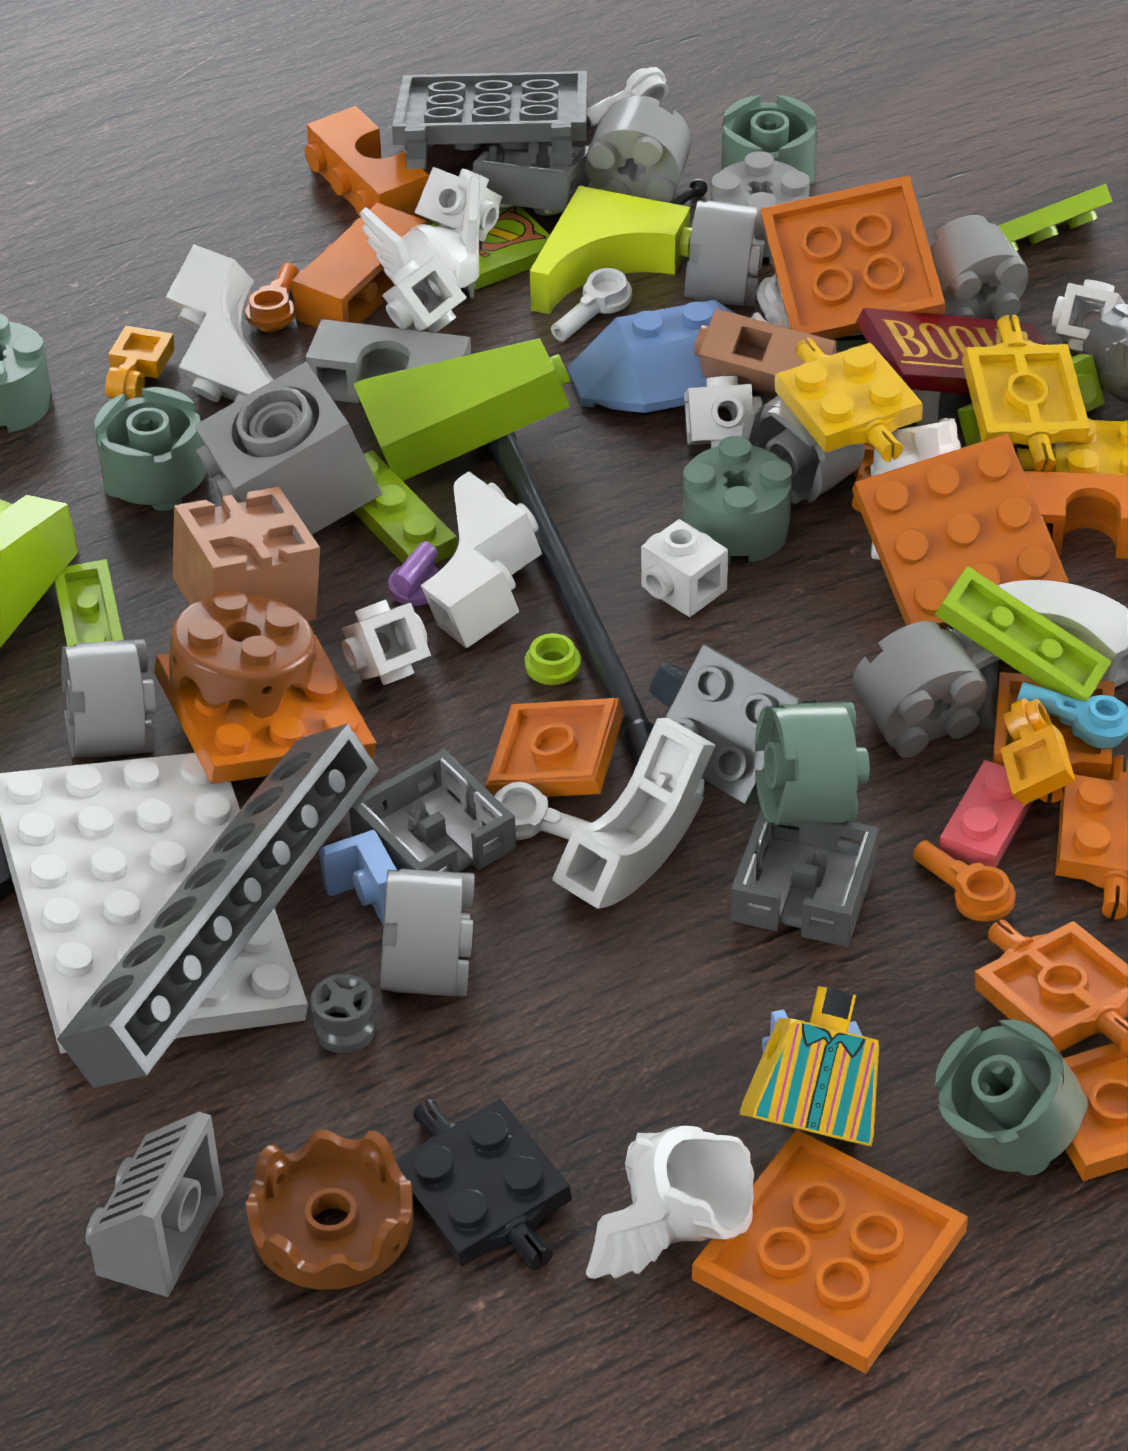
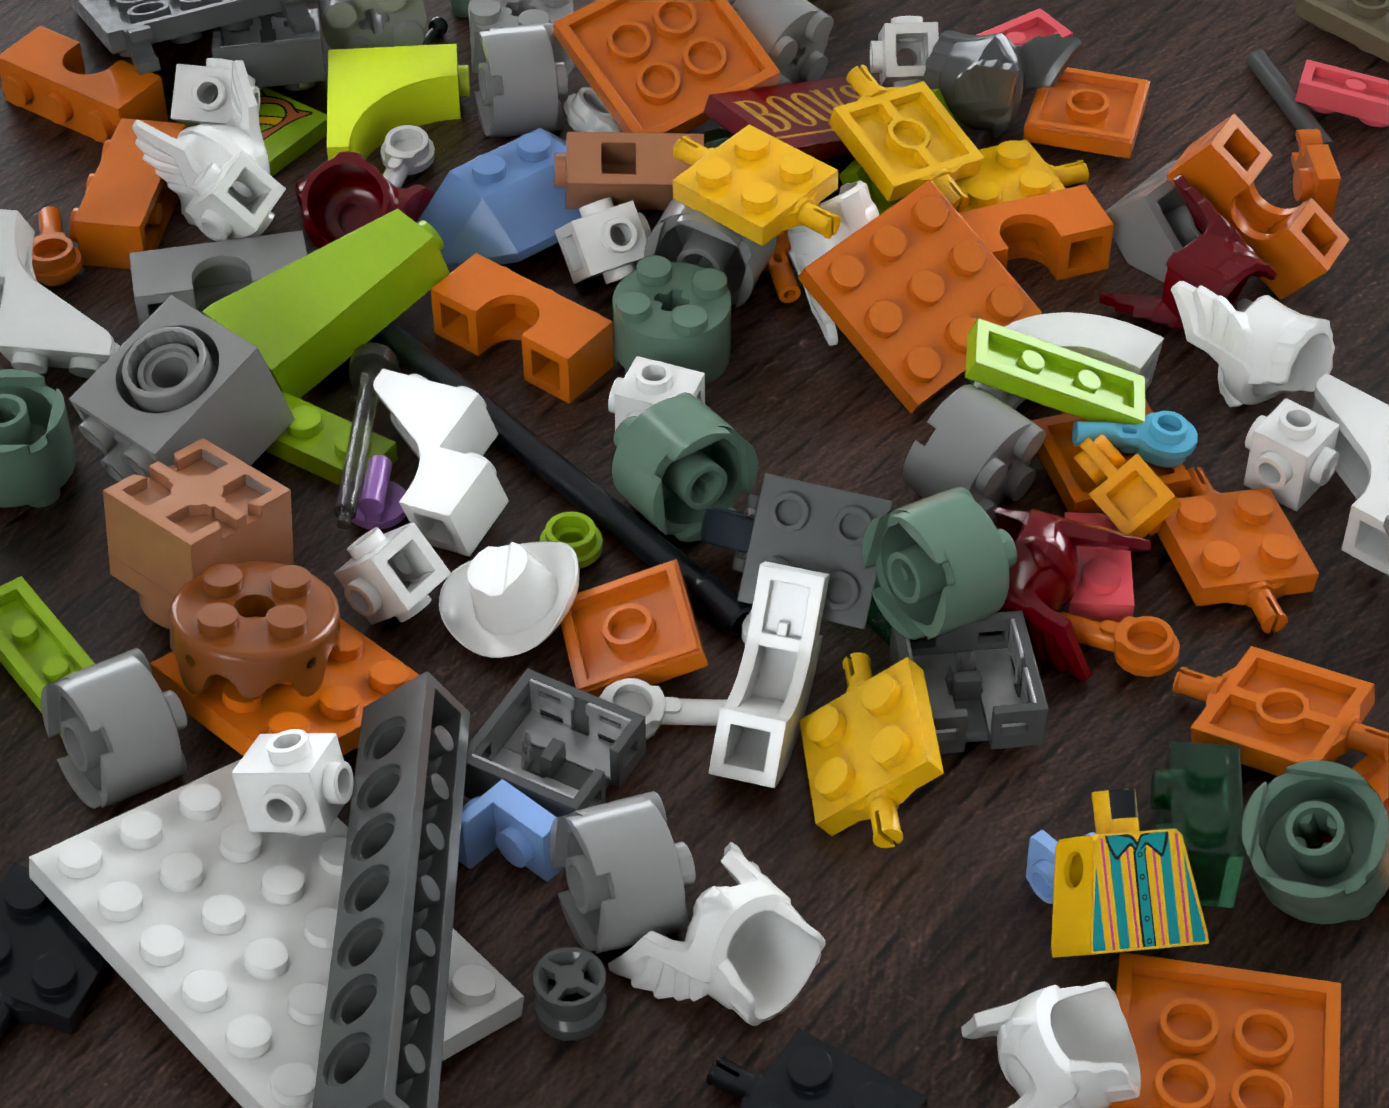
camera: 25 degrees left, 0 degrees up
(204, 779) = (293, 782): none -> white brick
(463, 461) = (363, 369): none -> clear smoke piece
(473, 689) = (510, 597): none -> white hat
(485, 1018) = (739, 948): none -> white helmet
(520, 313) = (351, 194): none -> dark red helmet
(633, 485) = (561, 341): none -> orange arch
(665, 617) = (680, 463): none -> sand green brick
(687, 900) = (871, 748): none -> yellow plate
(913, 1052) = (1204, 802): none -> clear green brick
(916, 806) = (1049, 577): none -> dark red helmet

